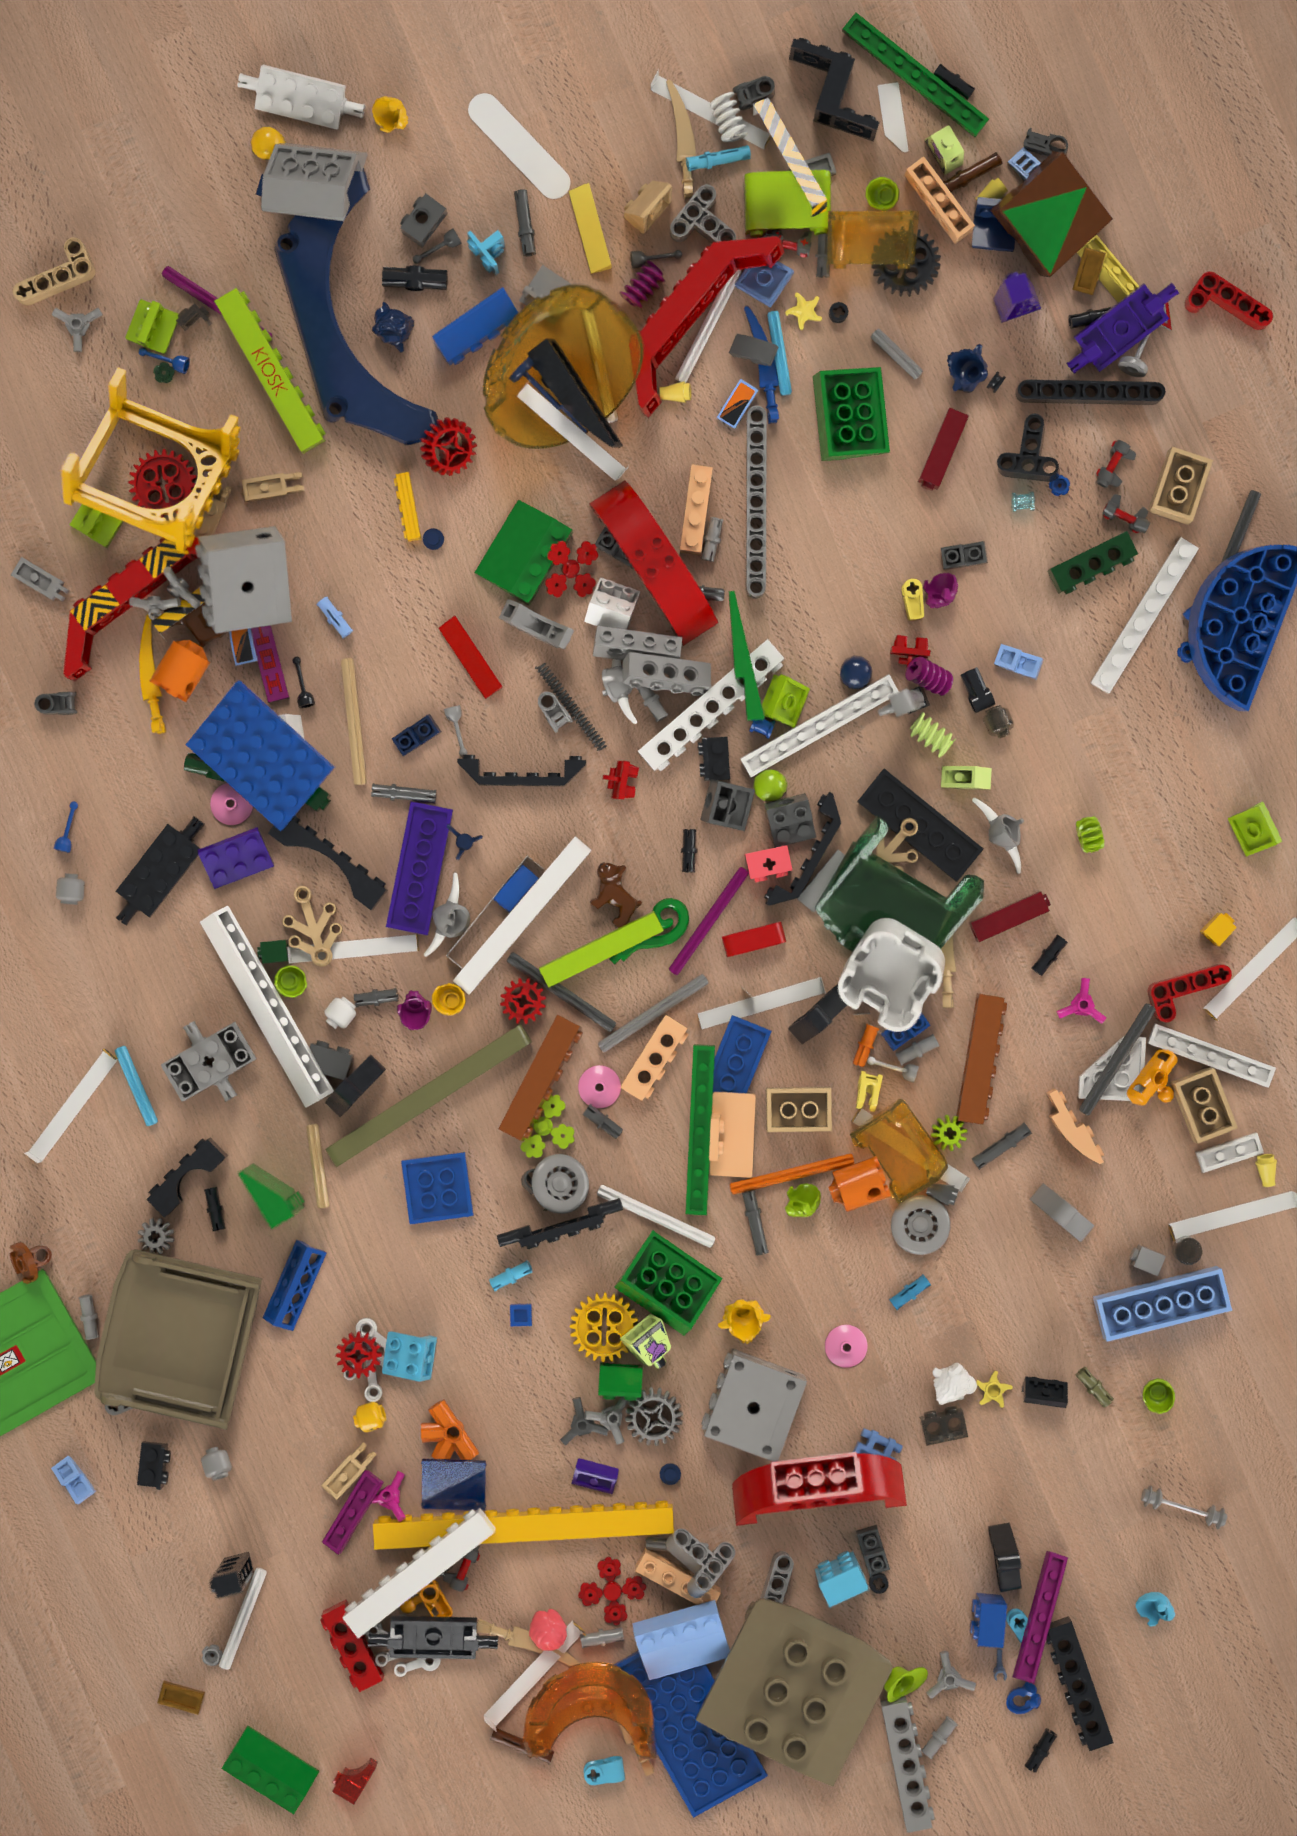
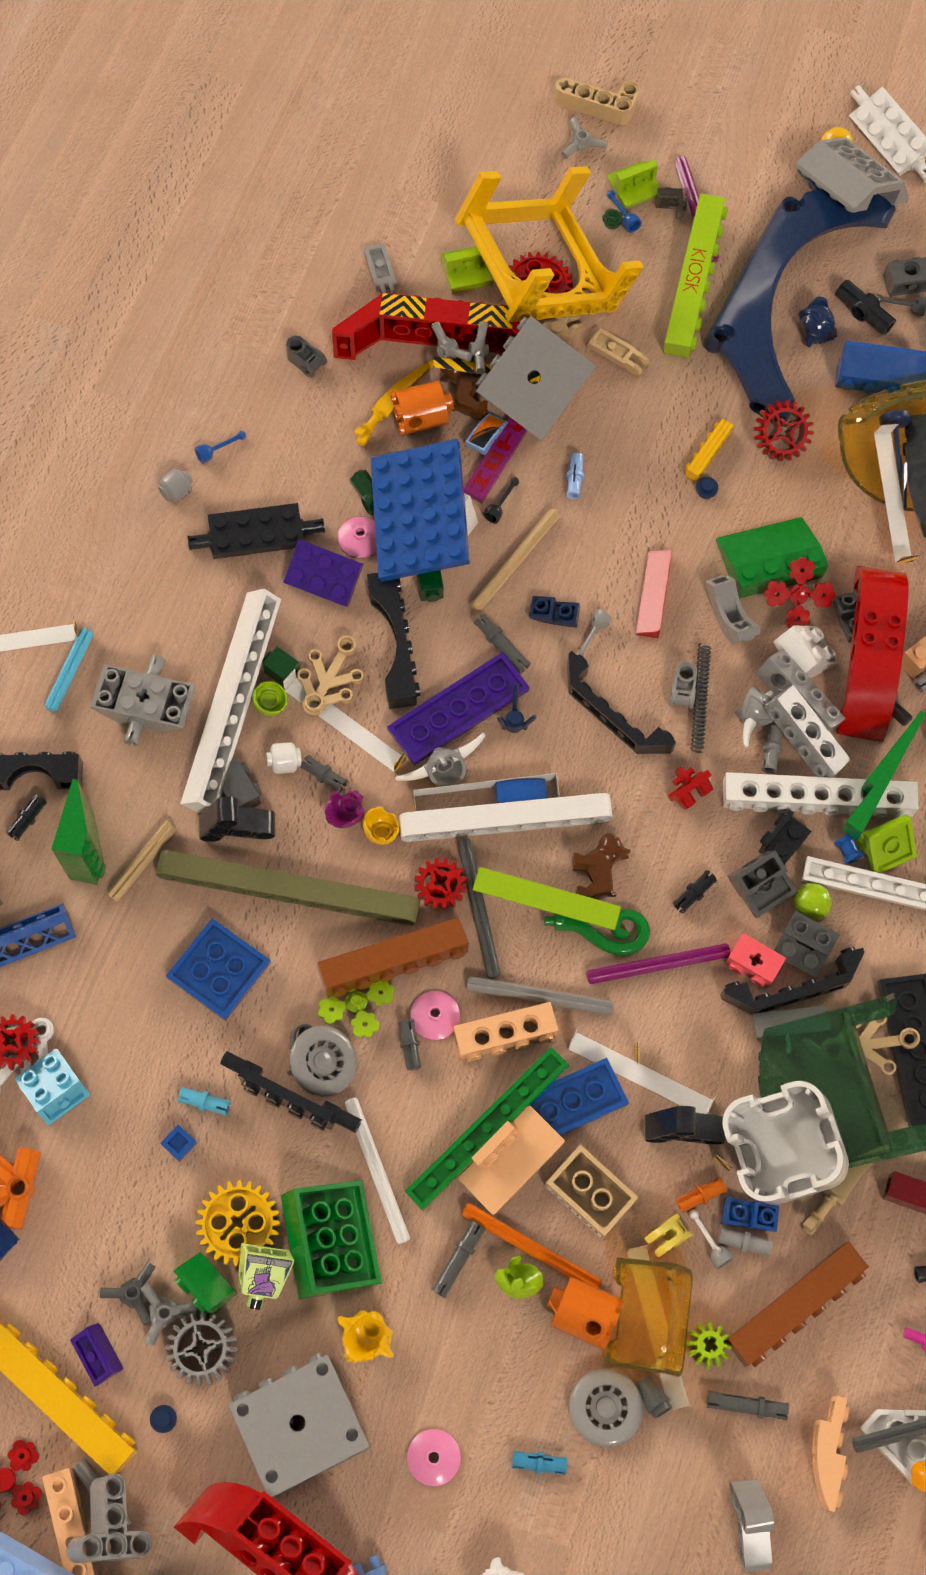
camera: 40 degrees right, 20 degrees down
(754, 939) = (684, 1012): red beam -> none

